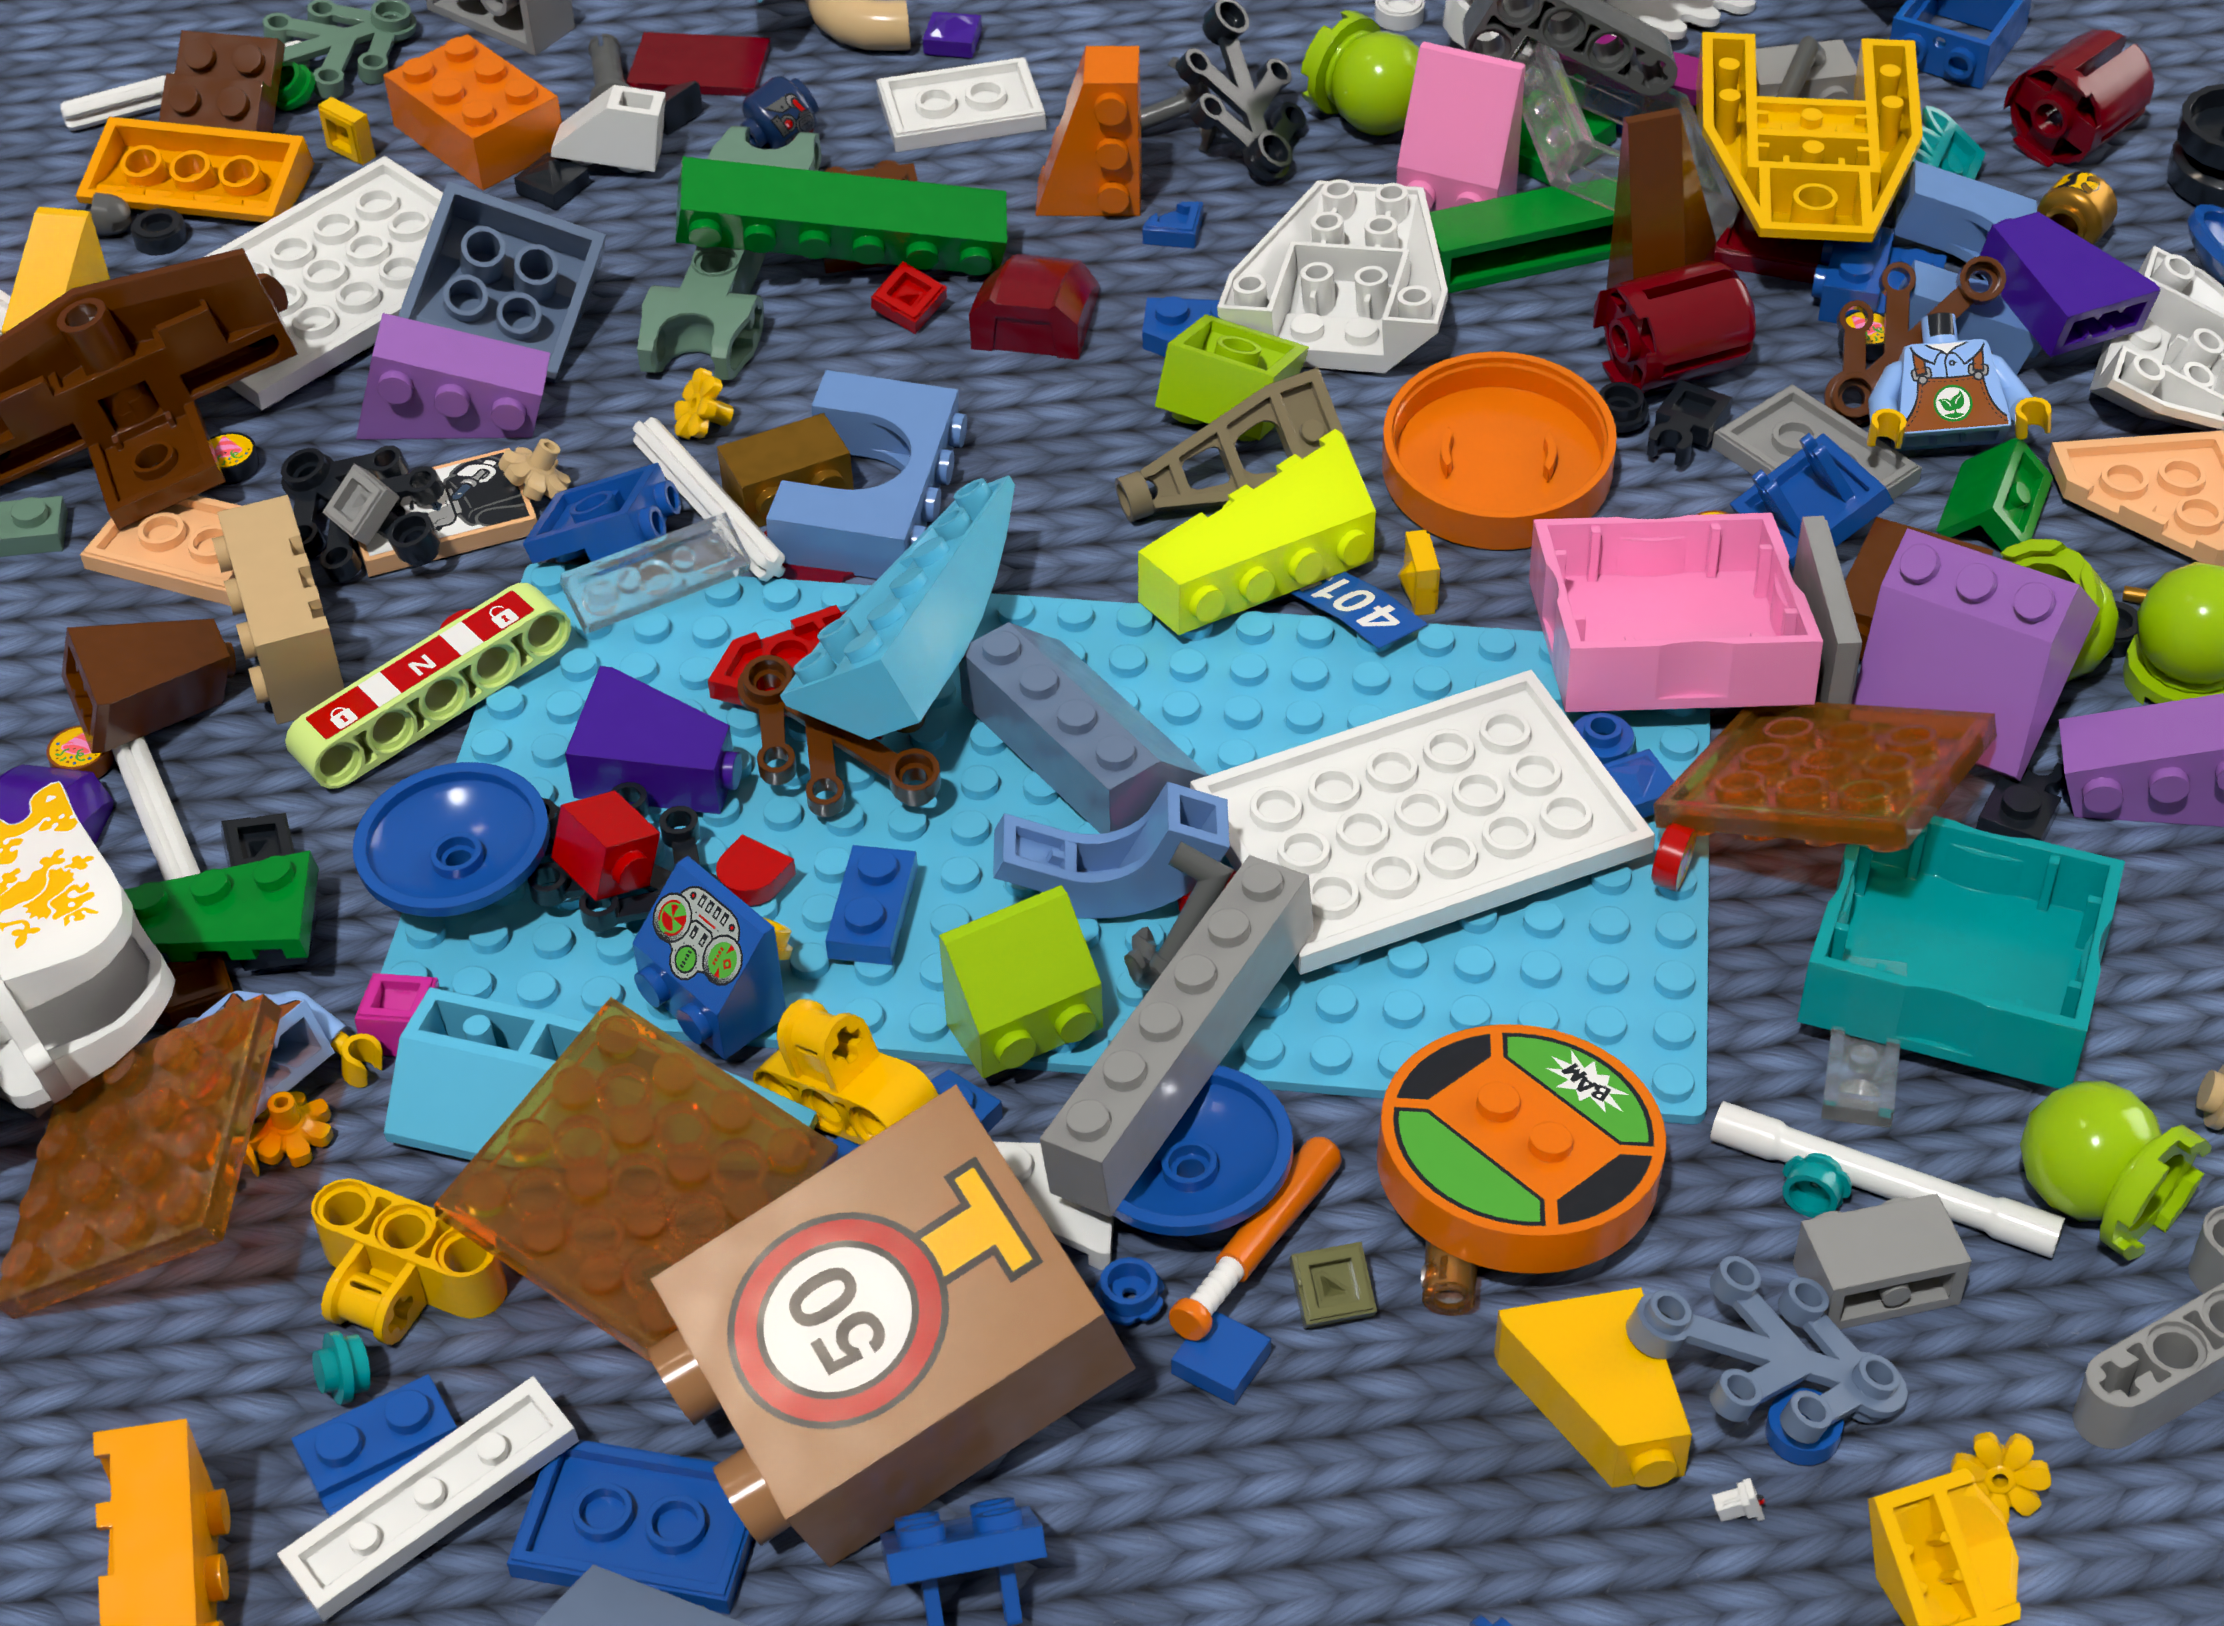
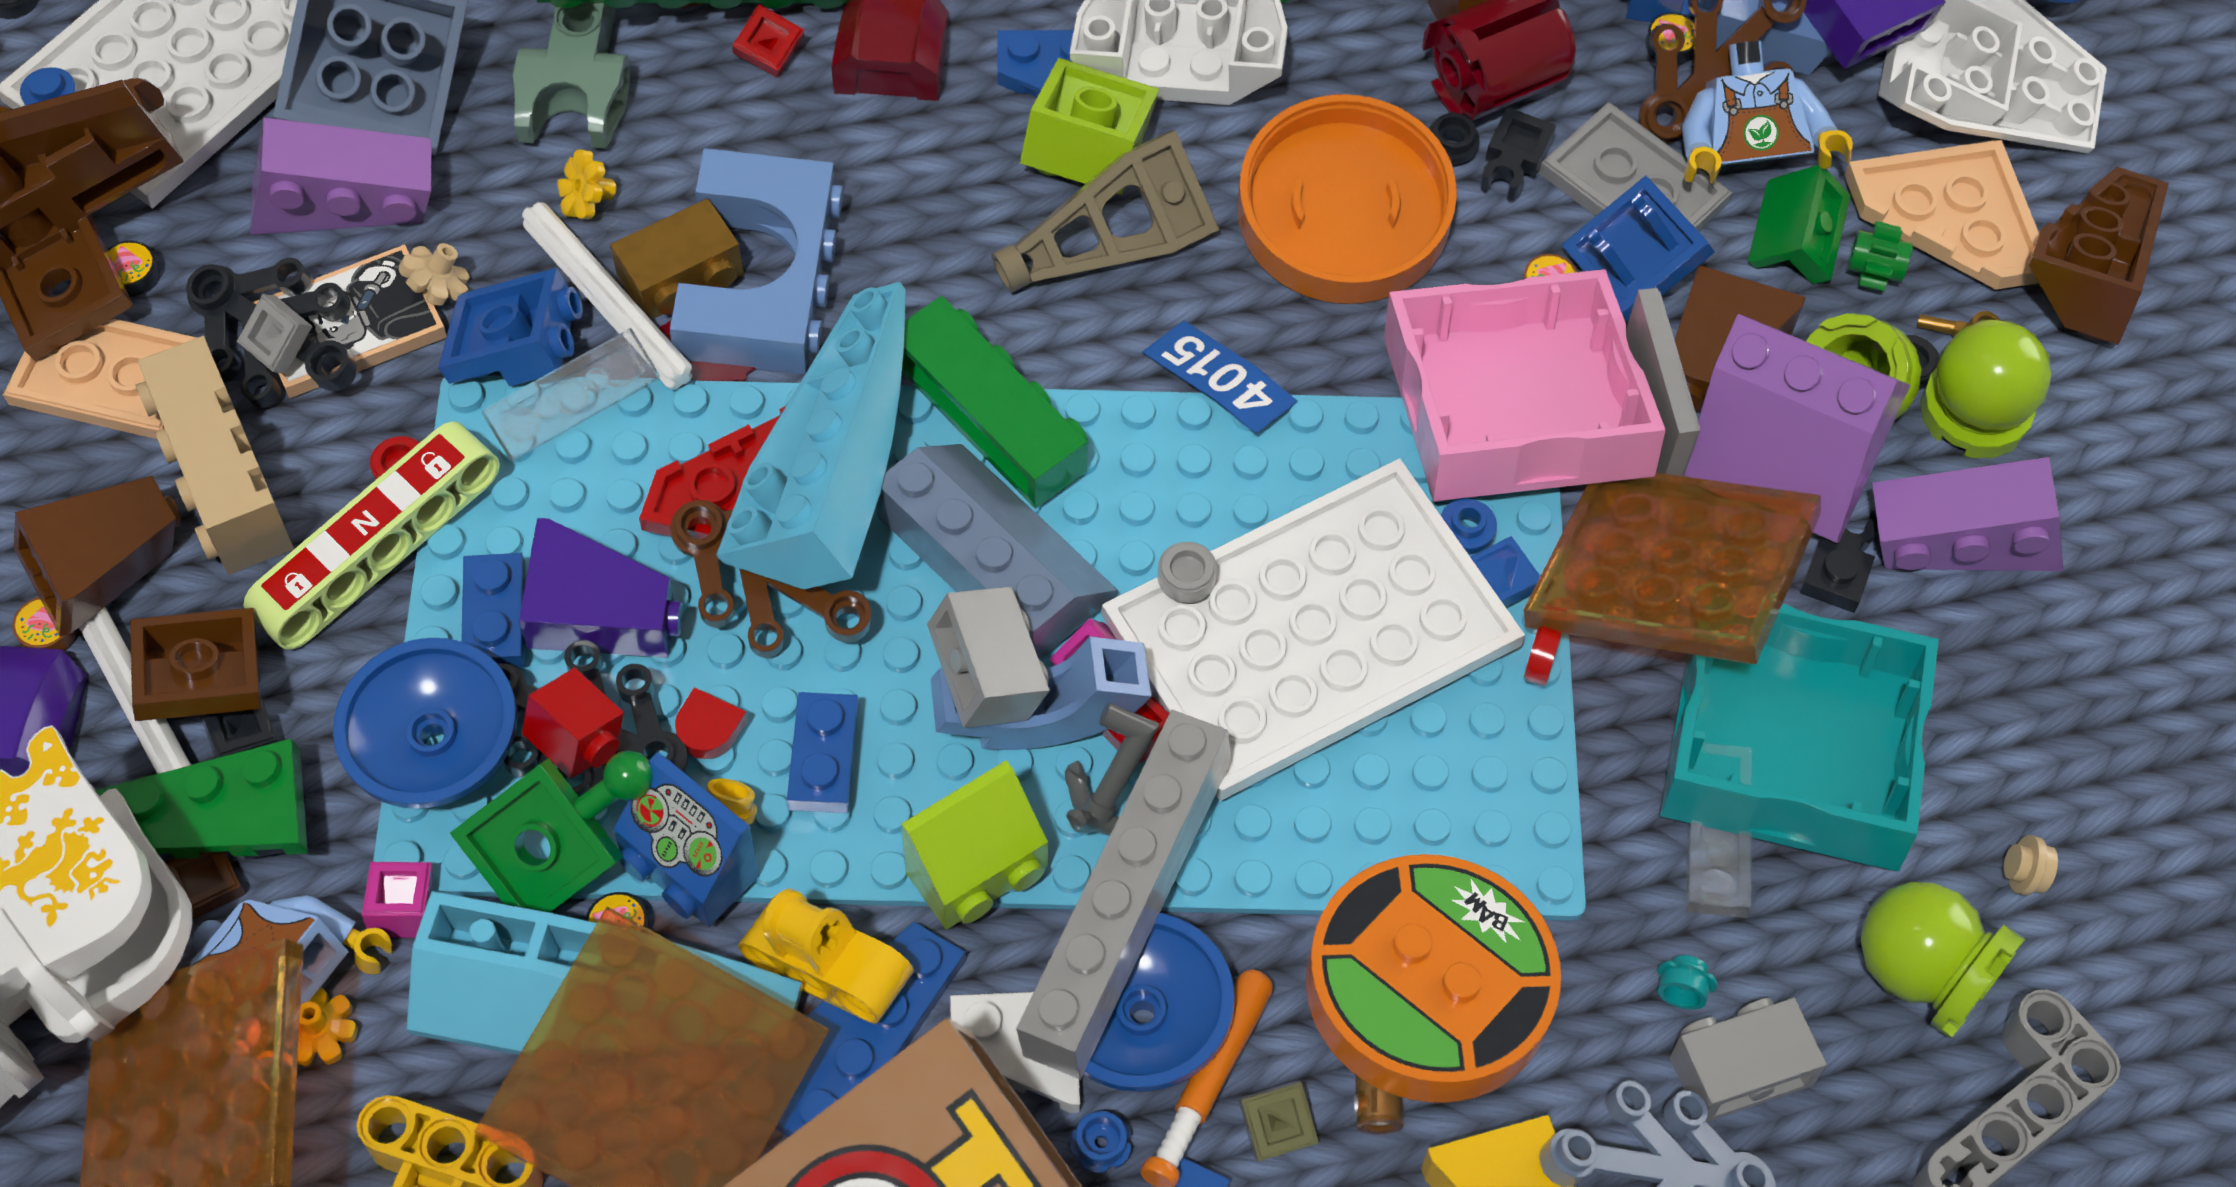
camera: 10 degrees left, 15 degrees up
(224, 780) = (194, 664): none -> reddish brown plate
(540, 749) = (493, 605): none -> blue plate
(563, 908) = (549, 805): none -> green plate
(1057, 802) = (988, 657): none -> light grey brick
(1096, 602) = (992, 402): none -> green brick
(1263, 541) = (1141, 326): neon yellow wedge -> none
(1286, 754) = (1187, 572): none -> light grey tile
(1420, 572) = (1286, 343): yellow tile -> none
(1998, 1217) = (1841, 1001): white piece -> none
(2082, 523) = (1880, 256): none -> green gear

